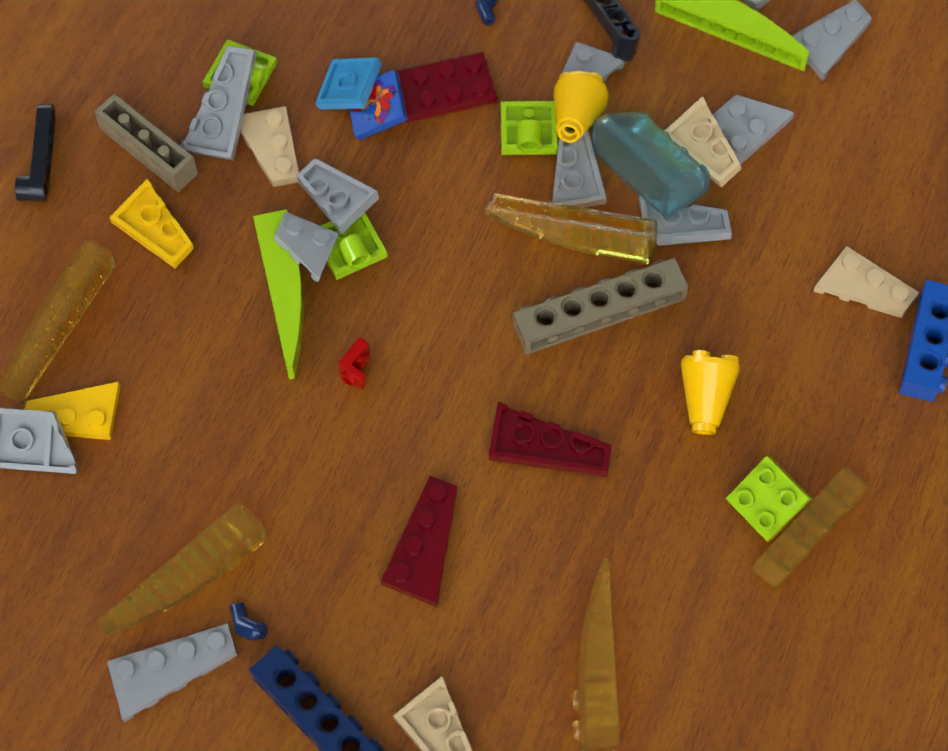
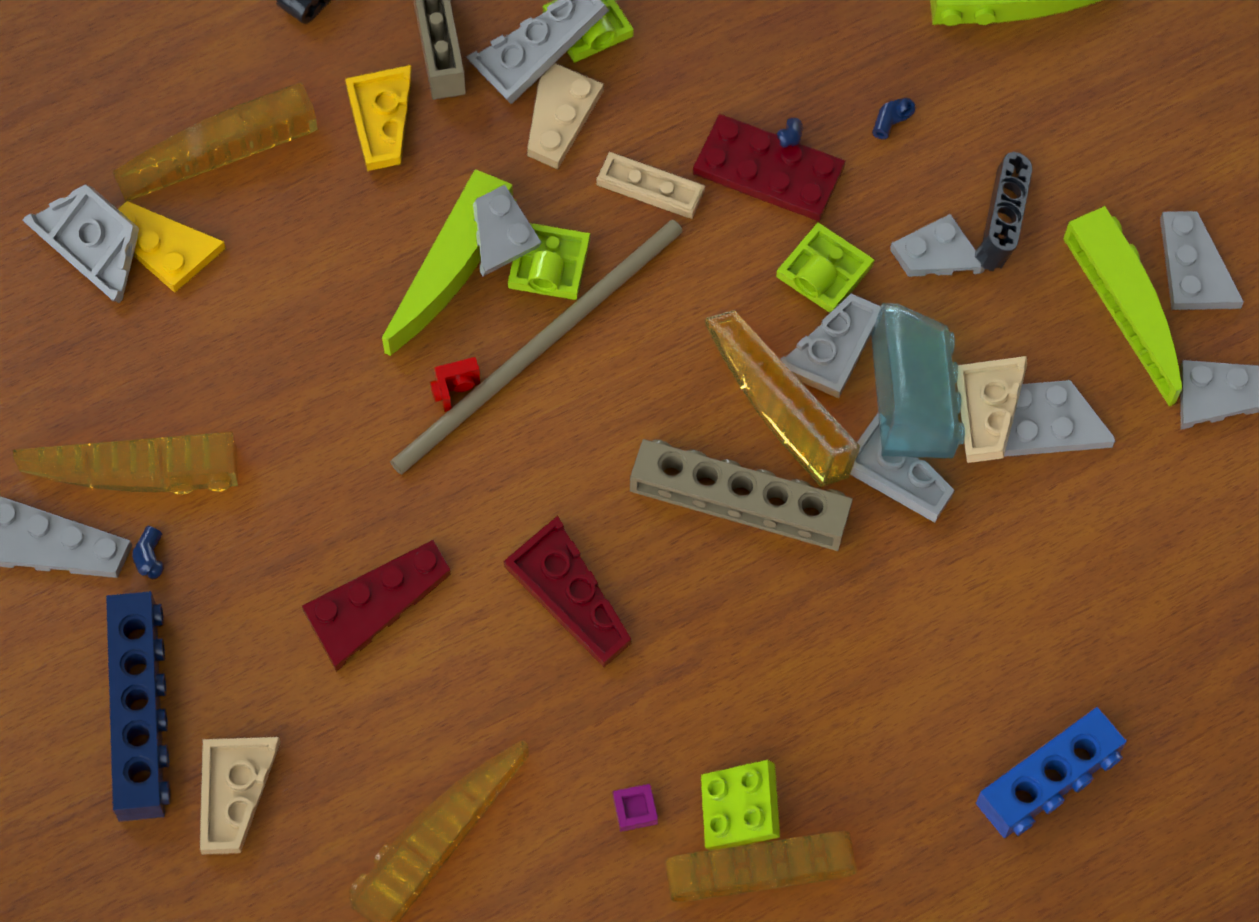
camera: 35 degrees right, 0 degrees up
(336, 193) = (575, 203): light grey wing -> none
(348, 83) = (681, 102): dark azure tile -> none
(371, 150) = (650, 185): none -> tan tile
(383, 109) = (691, 142): blue tile -> none
(387, 307) = (535, 347): none -> dark tan piece
(437, 56) = (791, 134): none -> dark blue arm
(578, 103) = (888, 274): yellow cone -> none
(704, 549) = (635, 807): none -> magenta plate
(708, 388) = (773, 653): yellow cone -> none
(865, 282) = (1038, 667): tan wing -> none

